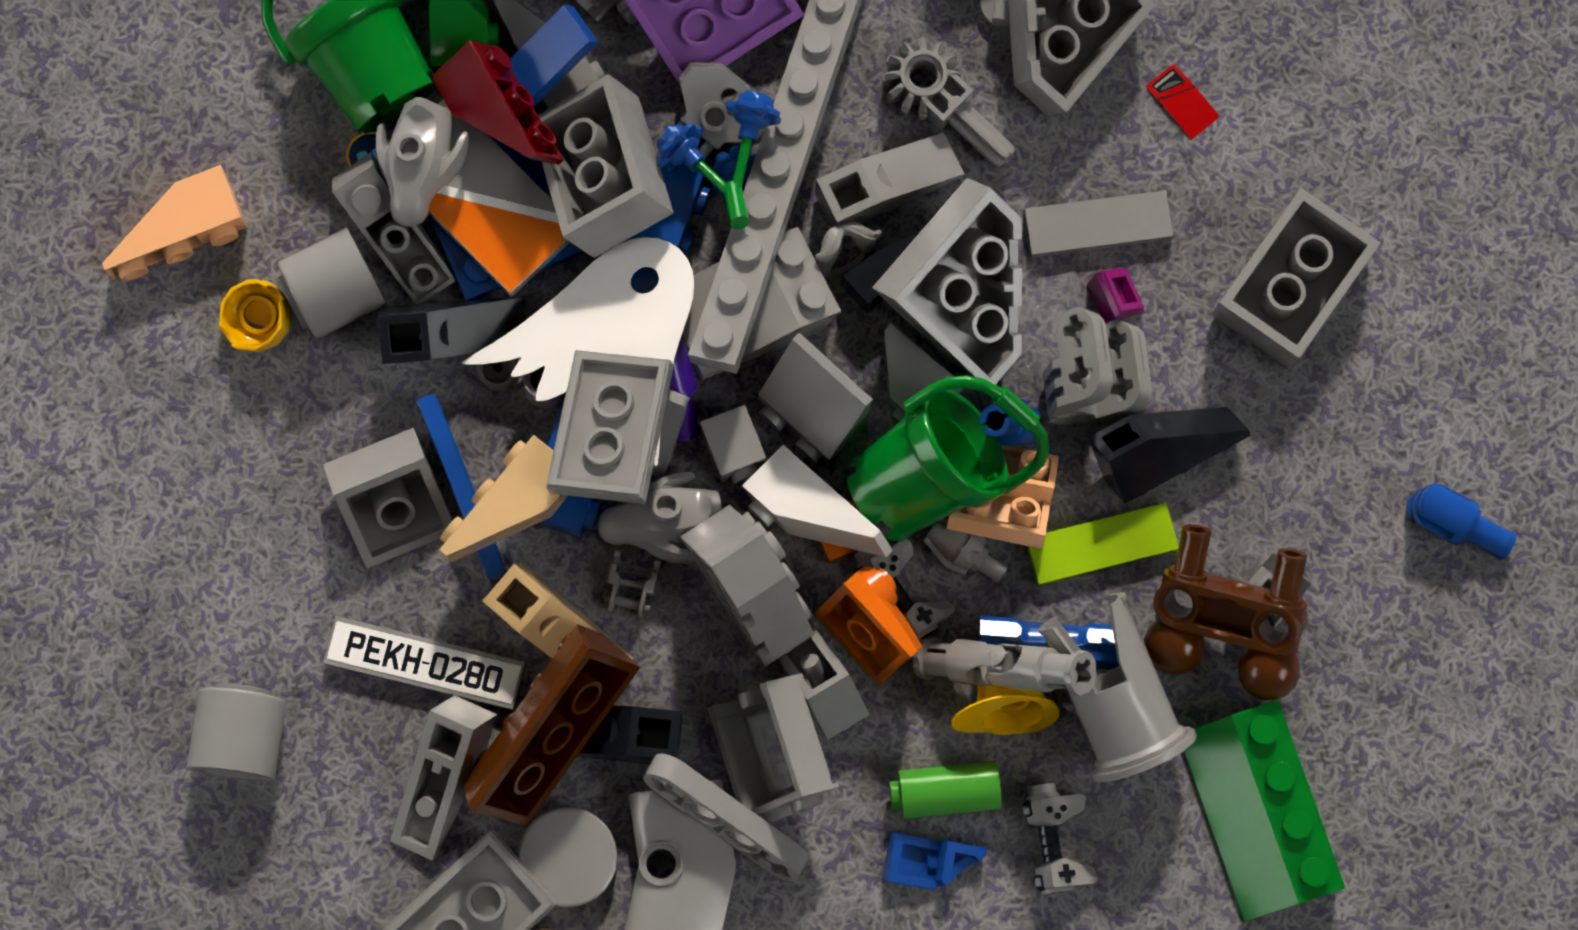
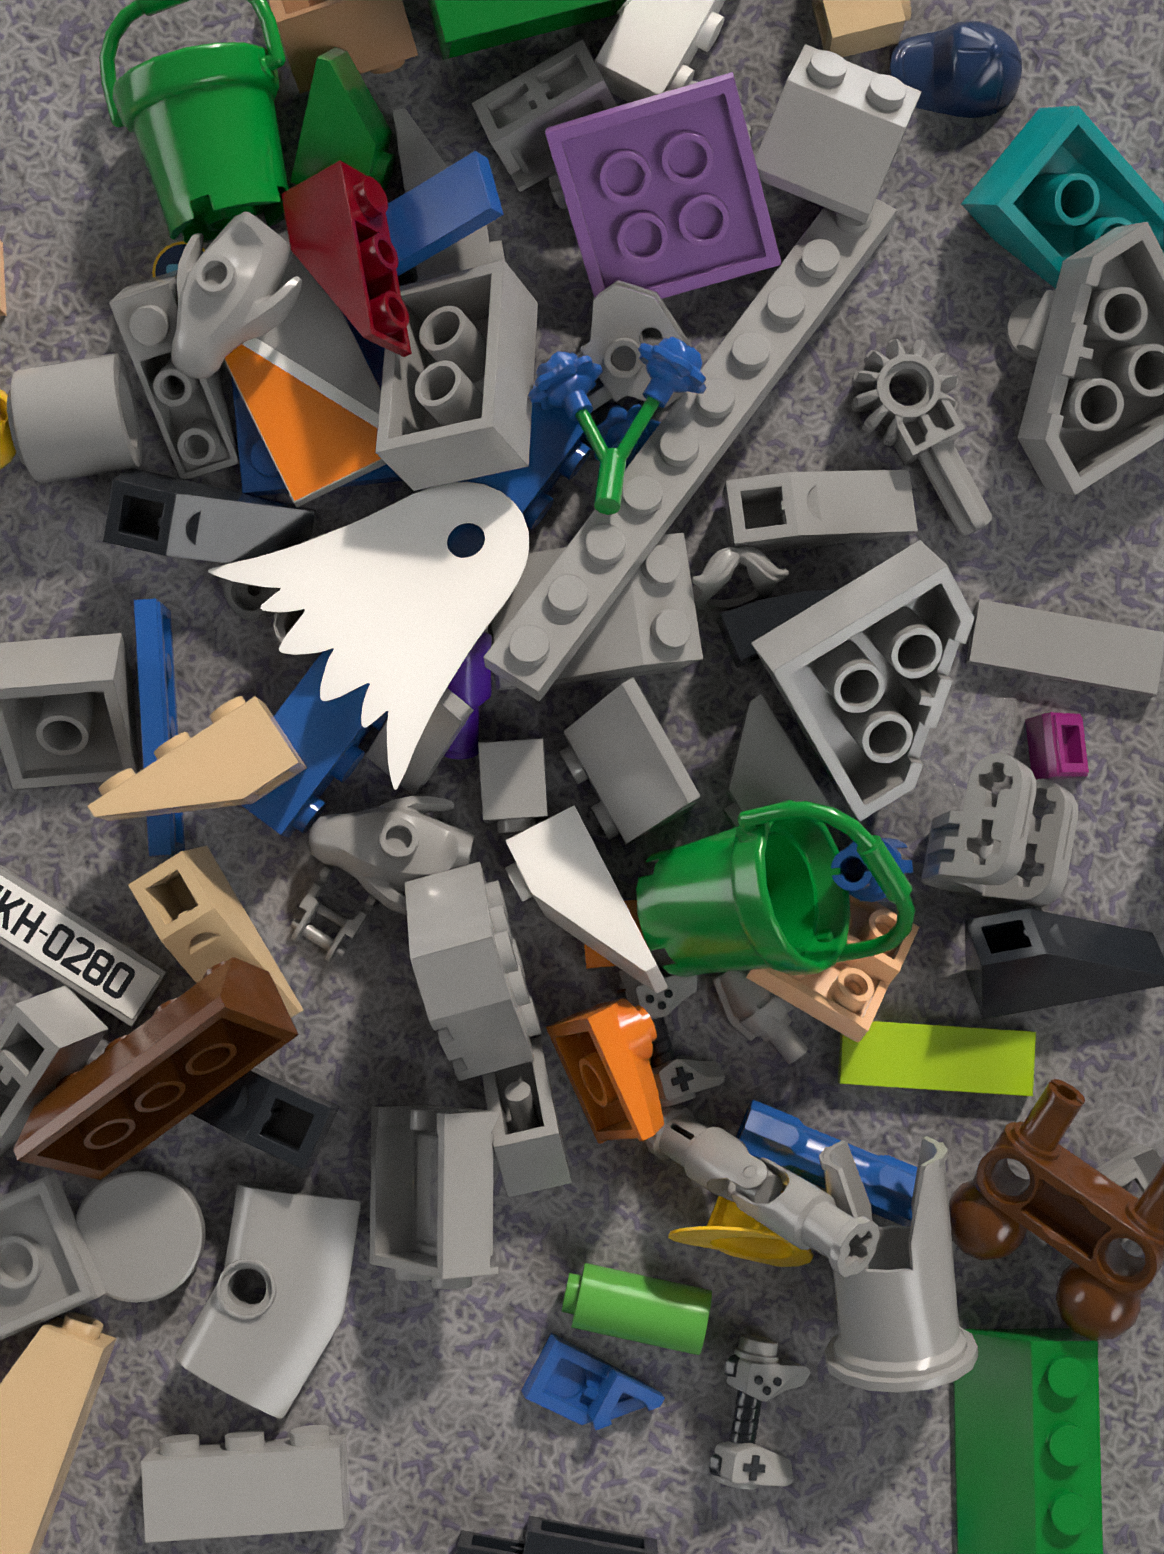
camera: 25 degrees right, 5 degrees up
(610, 427) = (353, 719): light grey tile -> none
(726, 817) = (345, 1257): light grey beam -> none

